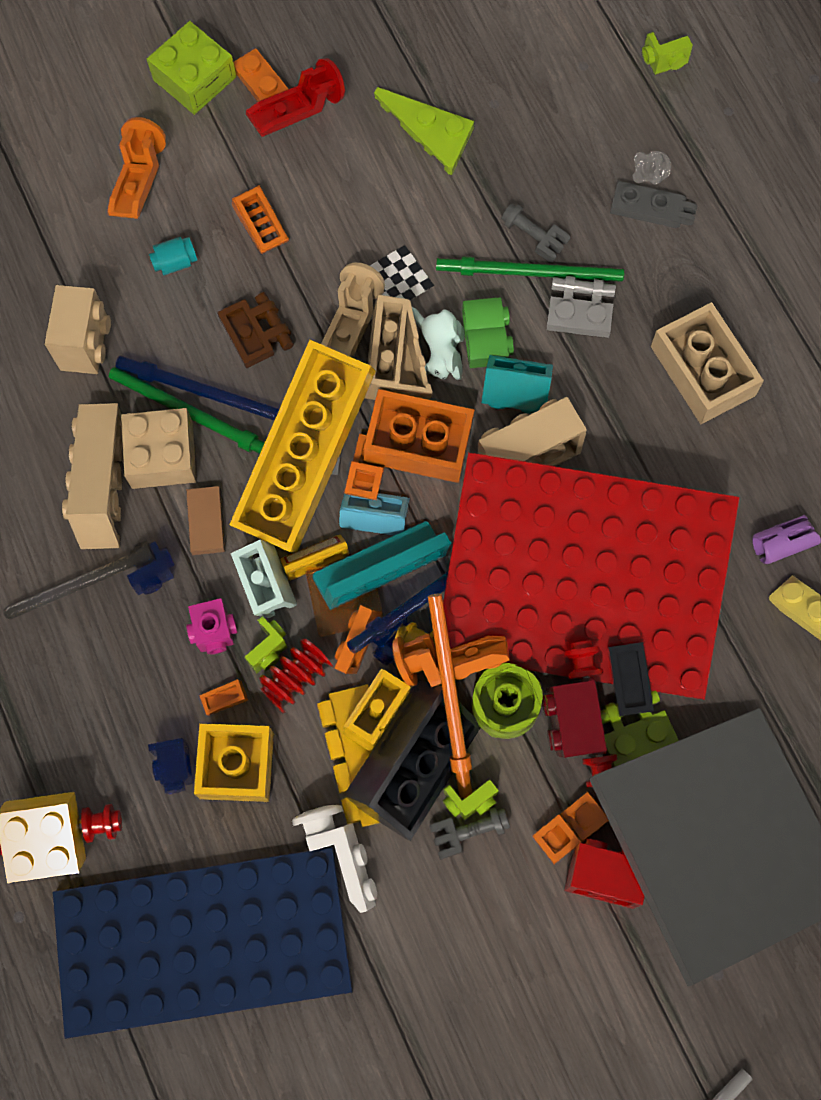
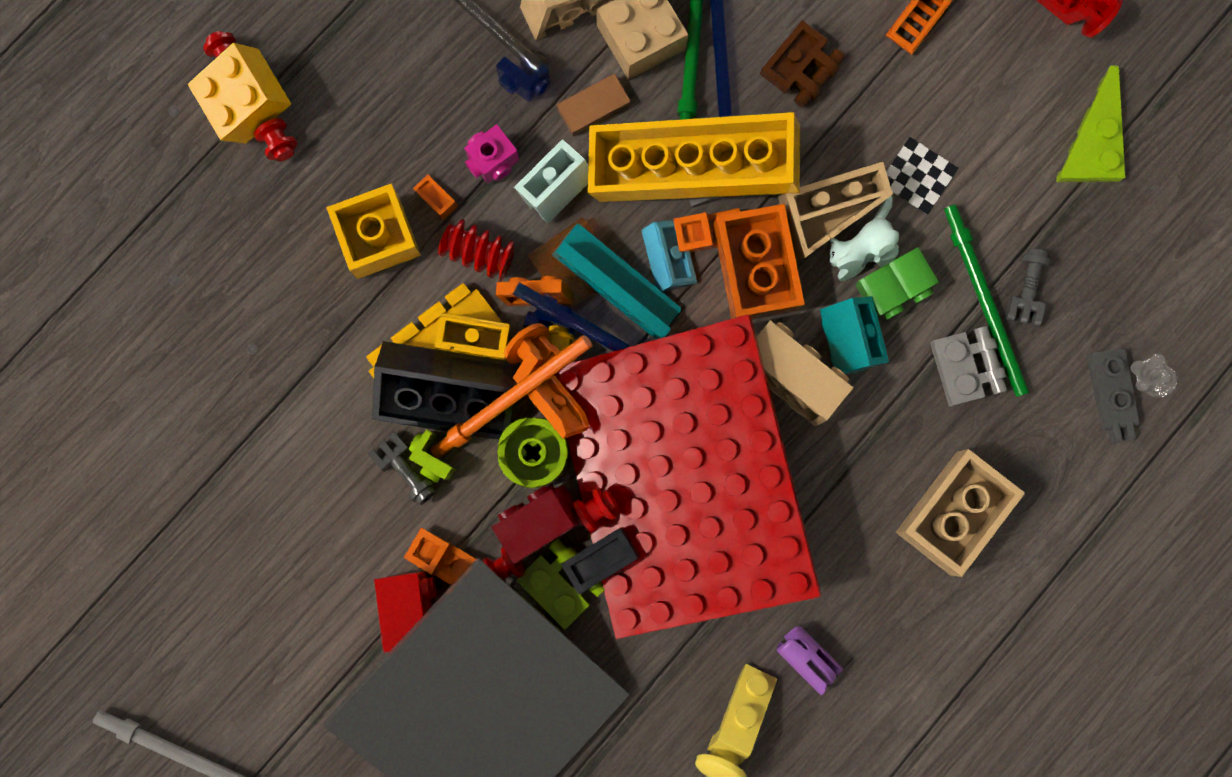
camera: 60 degrees right, 10 degrees up
(172, 765) = (352, 178): clear blue brick -> none
(200, 942) = (212, 276): dark blue plate -> none
(267, 652) = (490, 216): lime bracket -> none
(315, 557) = (600, 219): yellow slope -> none
(351, 855) = (338, 366): white piece -> none
(355, 294) = (857, 149): tan piece -> none

